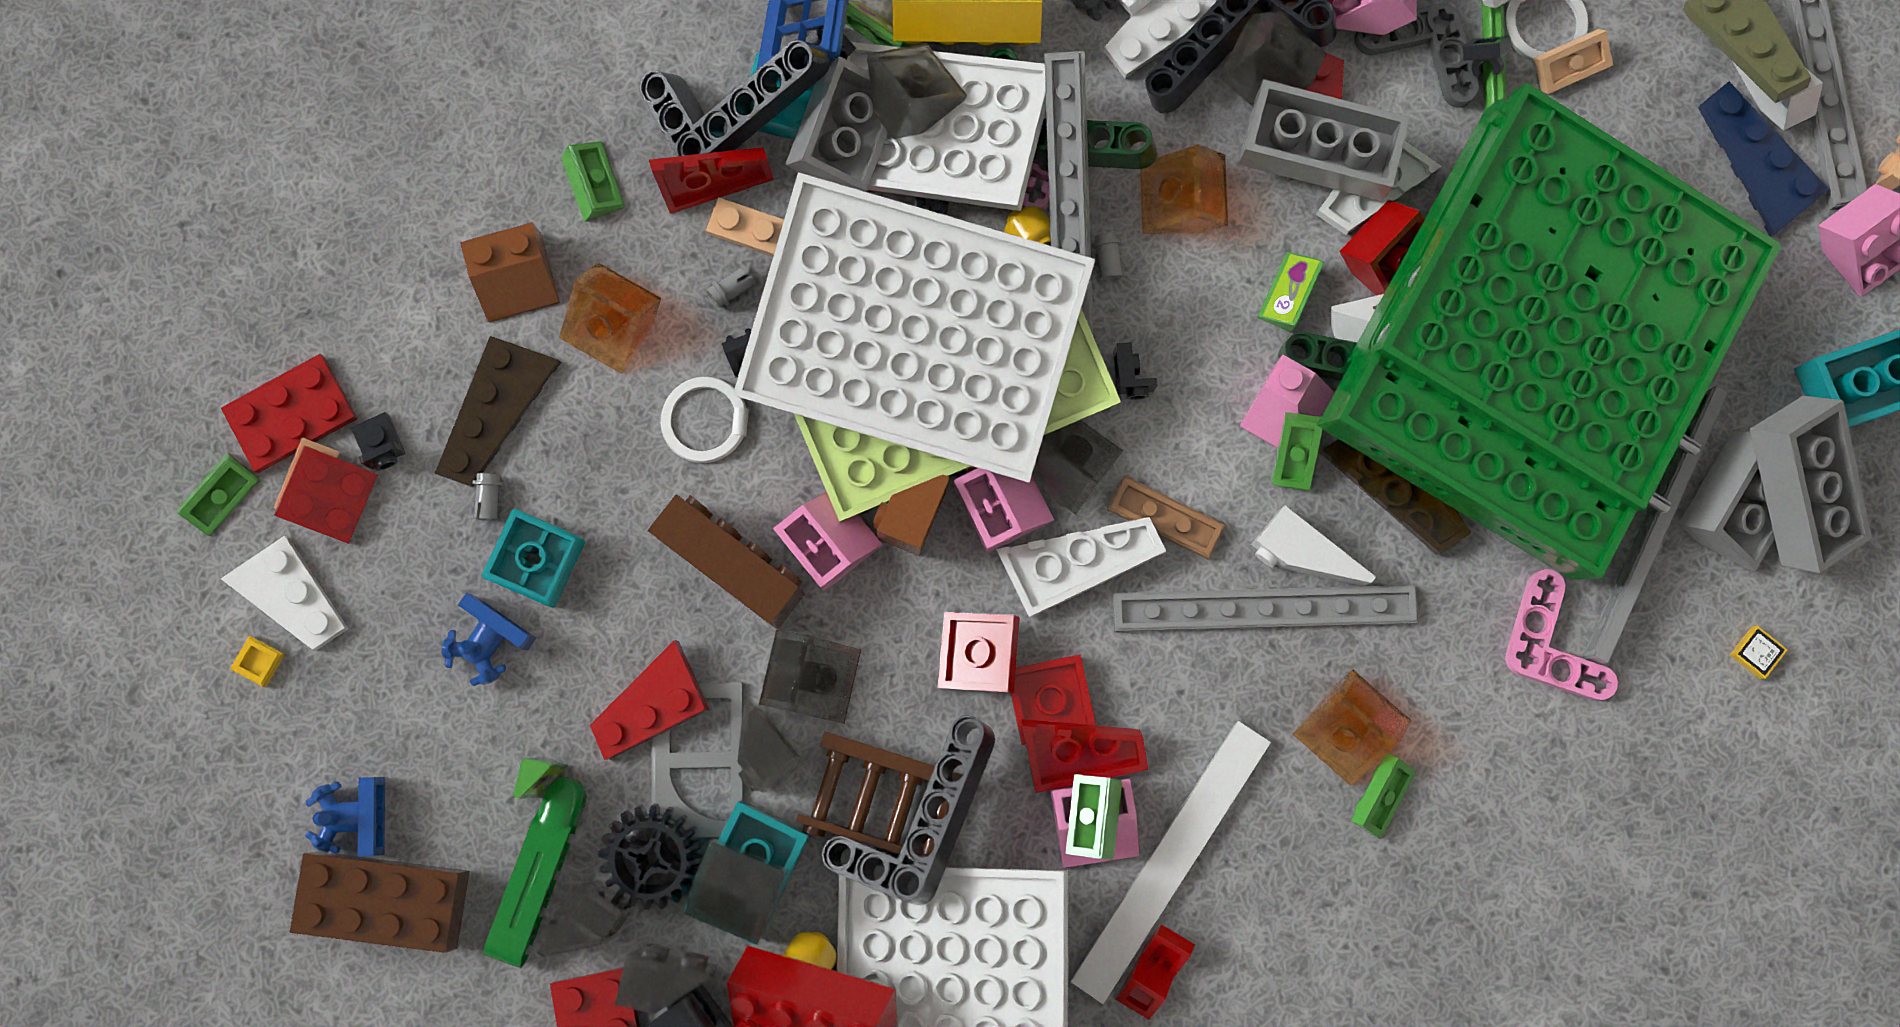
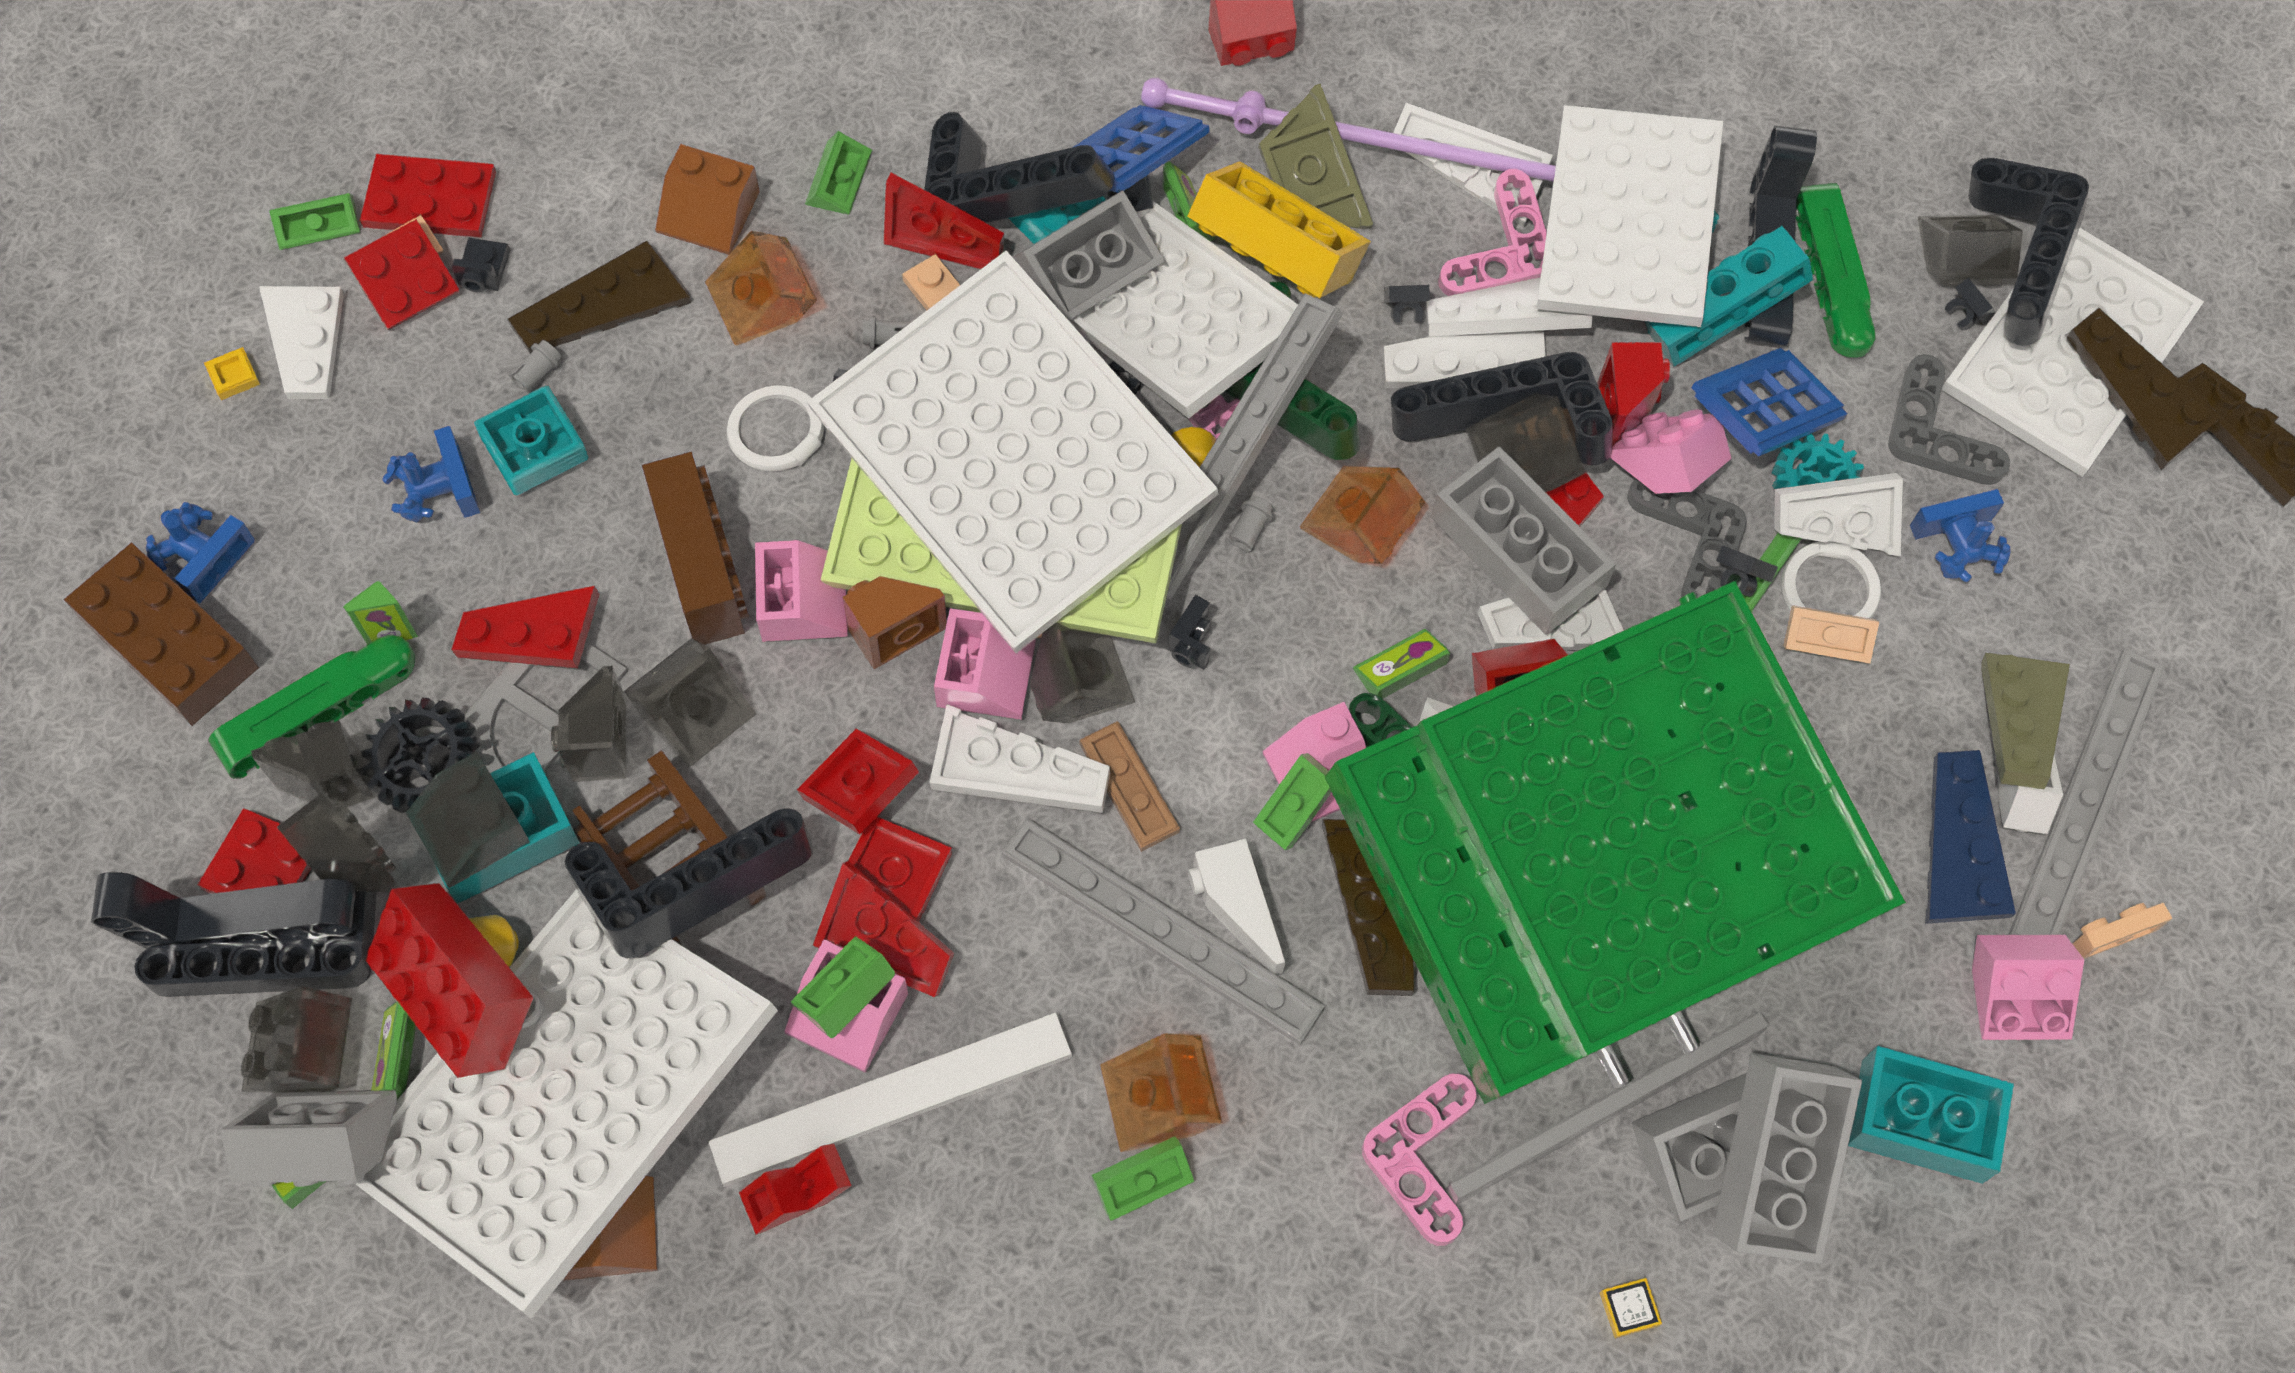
camera: 30 degrees right, 15 degrees down
(911, 89) = (1168, 260): clear smoke slope -> none

